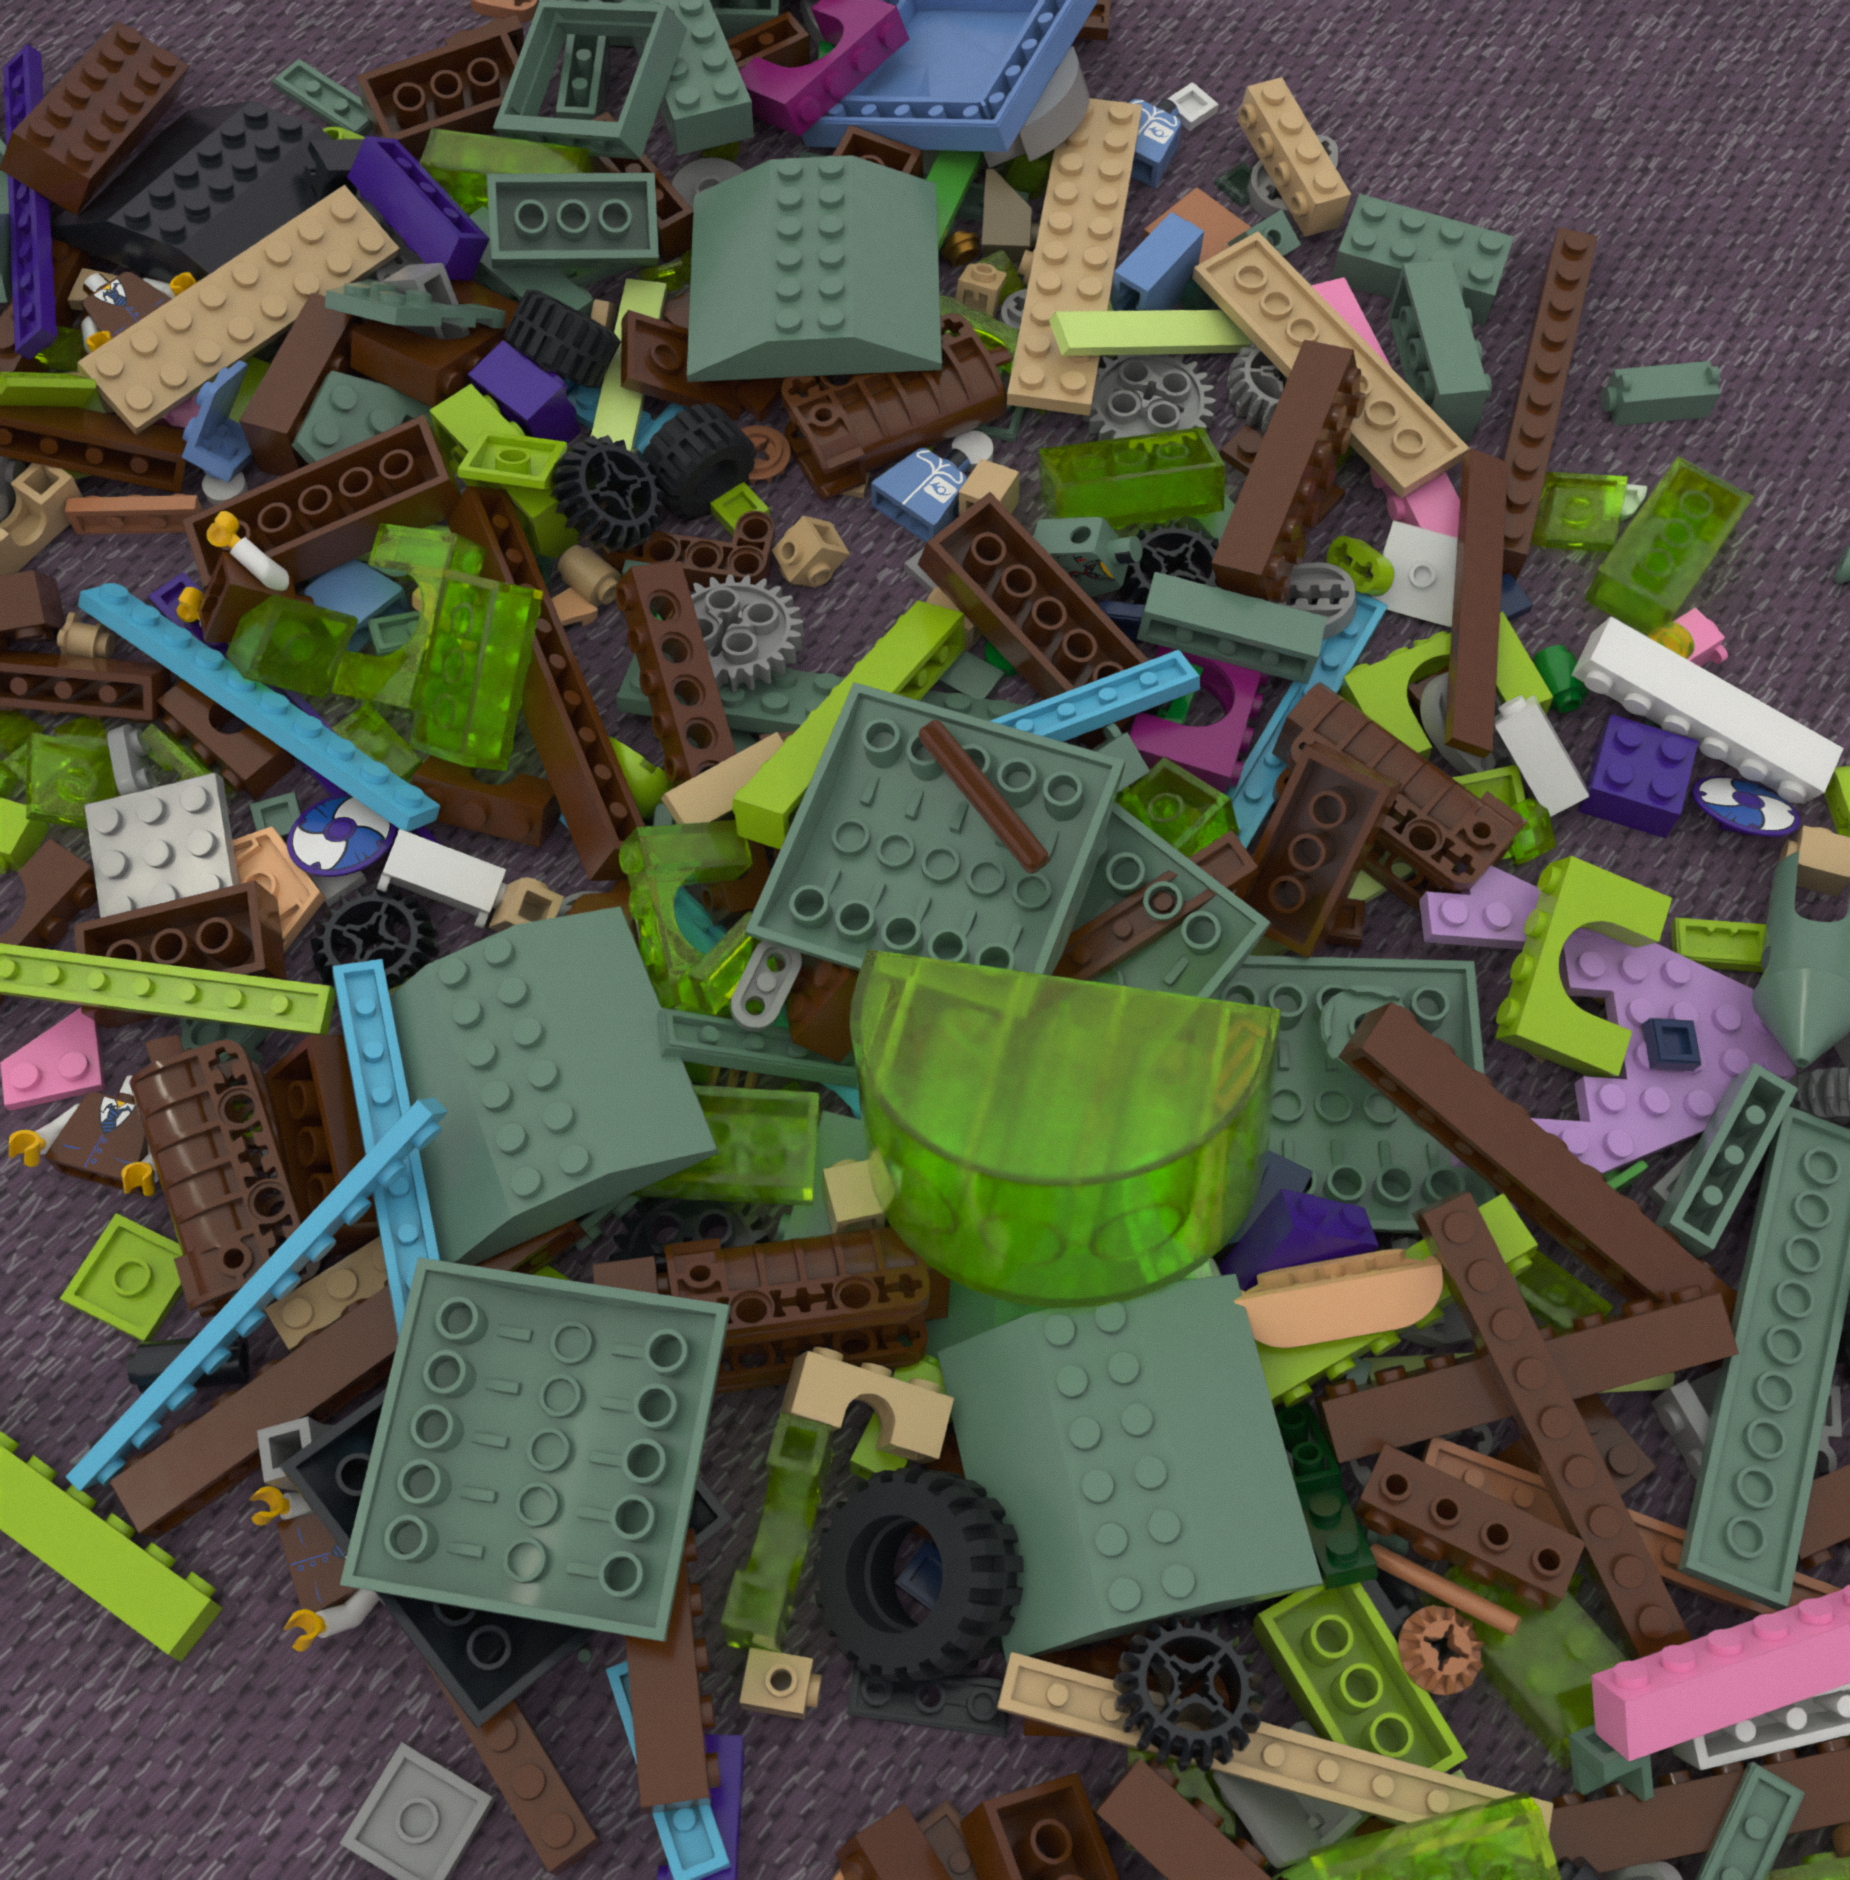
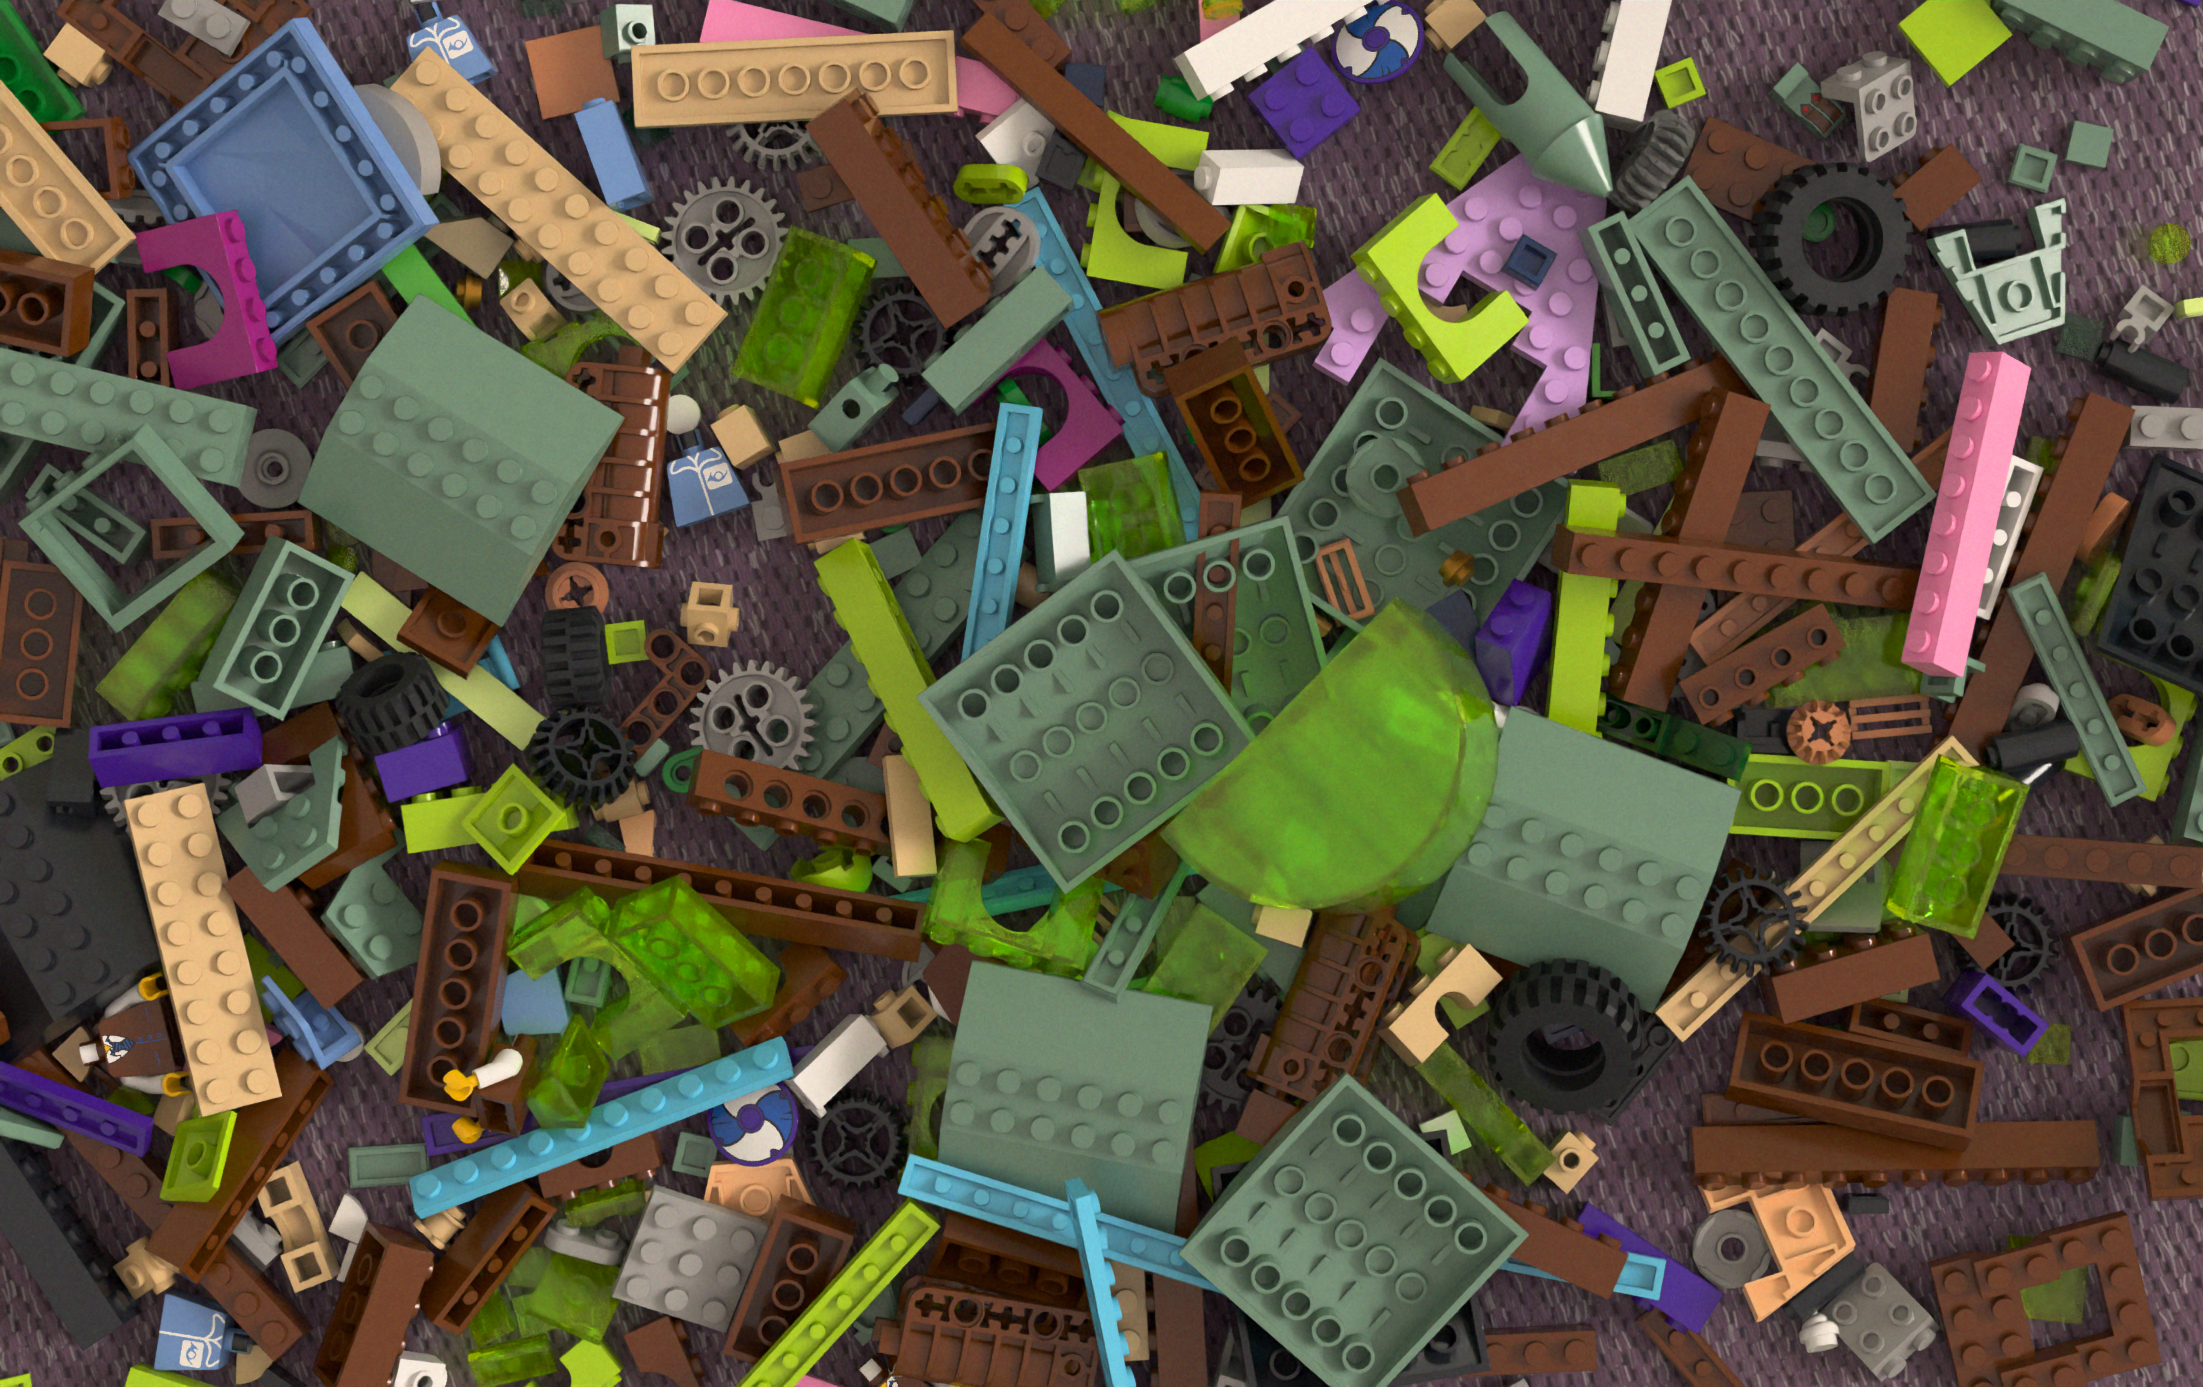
camera: 60 degrees left, 25 degrees up
(59, 567) = (349, 1219): none -> white tile
(119, 565) = (387, 1164): none -> sand green tile
(131, 514) = (335, 1126): nougat plate -> none
(722, 967) = (1073, 916): clear neon green plate -> none
(733, 1539) = (1456, 1133): none -> tile
(764, 986) = (1101, 894): light grey plate -> none
(984, 797) = (1078, 668): reddish brown axle -> none
(1146, 332) = (677, 217): yellowish green tile -> none
(1331, 1147) = (1457, 569): none -> pearl gold plate
(1341, 1298) = (1566, 646): light nougat brick -> none
(1423, 608) = (1061, 163): none -> black hinge
(1446, 1590) = (1784, 704): nougat bar -> none
(1522, 1725) = (1924, 713): none -> nougat tile

